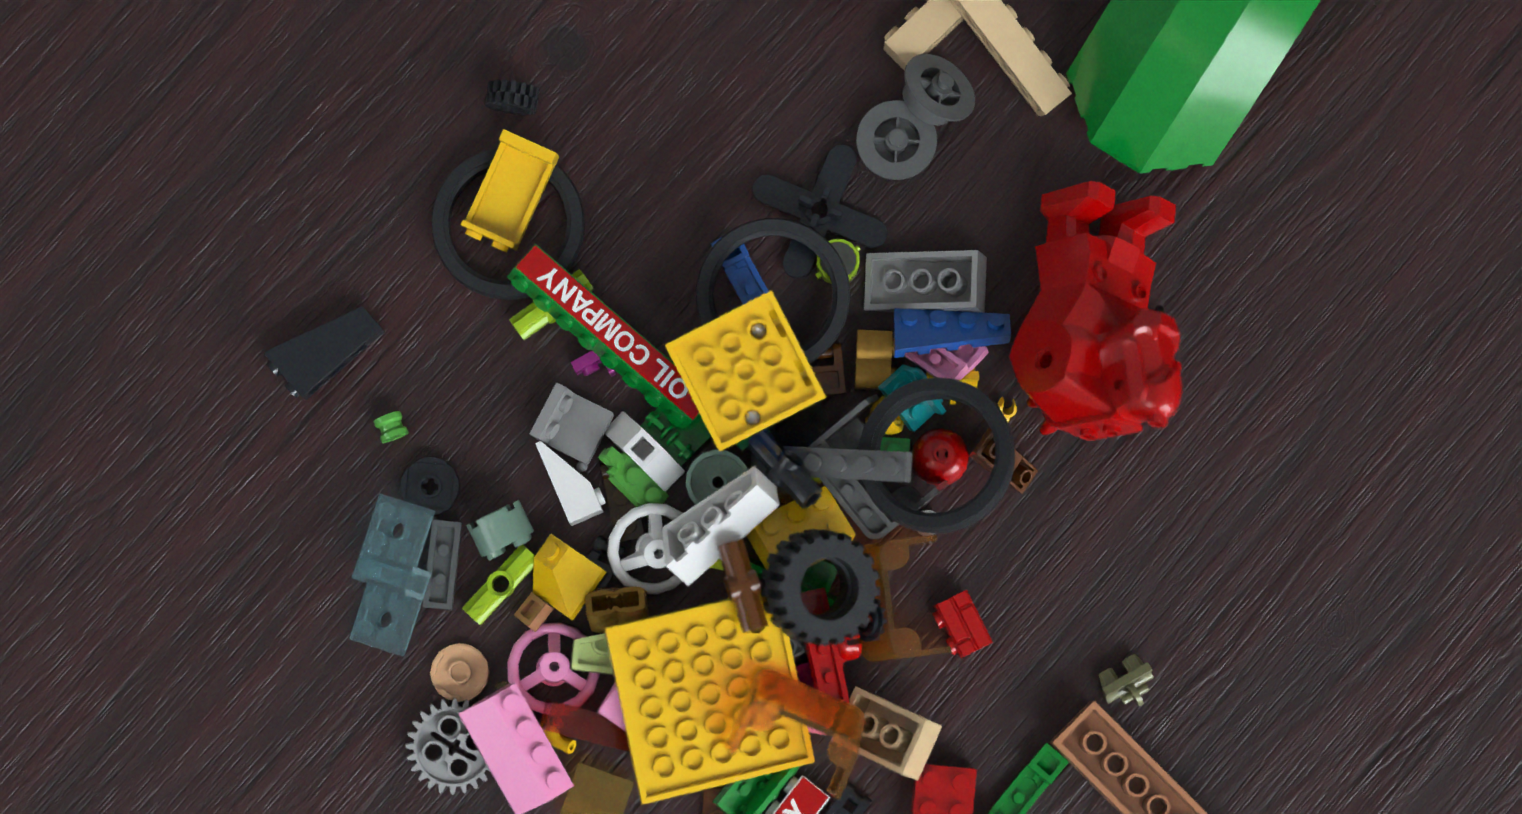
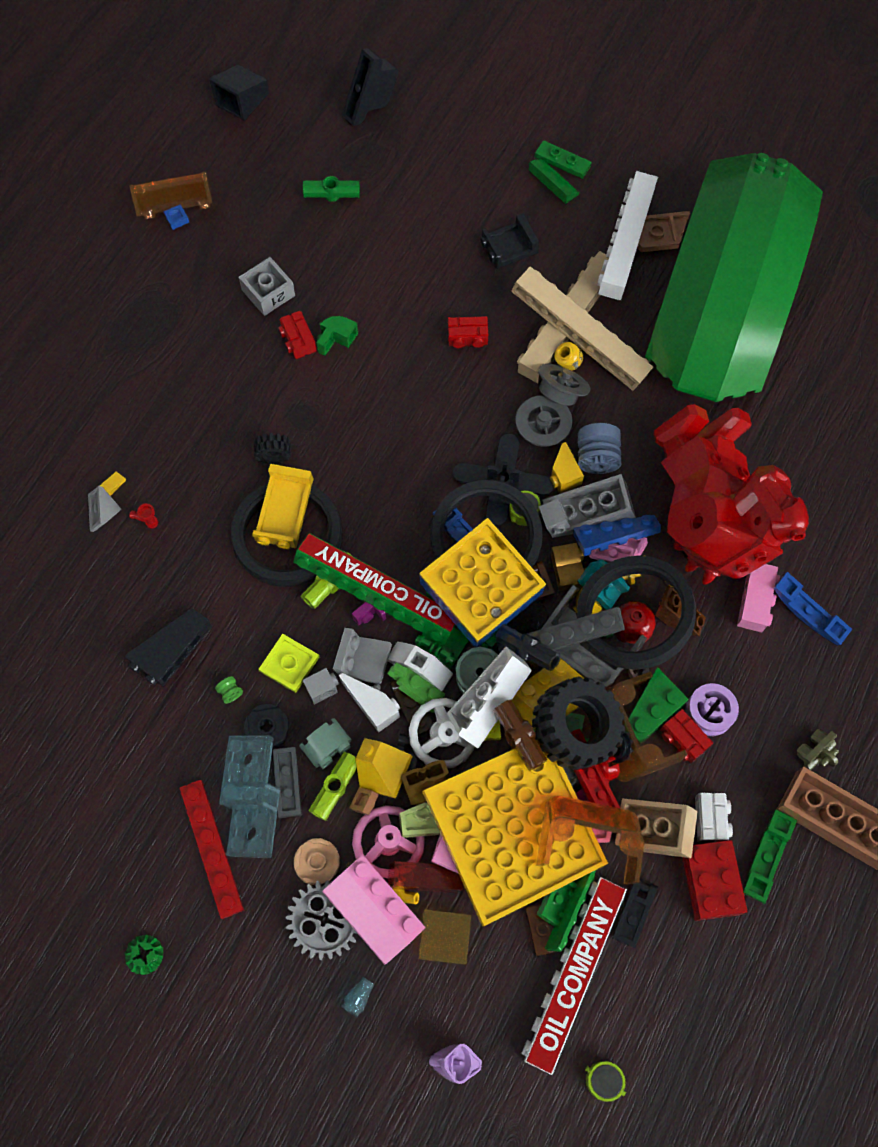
camera: 10 degrees left, 15 degrees down
(240, 742) = (154, 957): none -> green gear
(264, 129) = (101, 508): none -> light grey slope
(284, 94) = (113, 483): none -> yellow piece
(322, 155) = (145, 514): none -> red piece
(332, 625) = (211, 849): none -> red plate
(475, 408) = (289, 663): none -> neon yellow plate
(510, 448) = (321, 685): none -> light grey brick
(873, 288) = (555, 517): none -> light grey brick
(907, 220) = (565, 471): none -> yellow slope
(931, 578) = (656, 706): none -> green wedge
(958, 47) = (568, 356): none -> yellow head
(959, 207) = (599, 448): none -> sand blue wheel
(964, 734) = (713, 817): none -> white brick
(1019, 615) = (724, 719): none -> lavender wheel
(1111, 466) = (758, 598): none -> bright pink brick
(1177, 495) = (809, 611): none -> blue slope

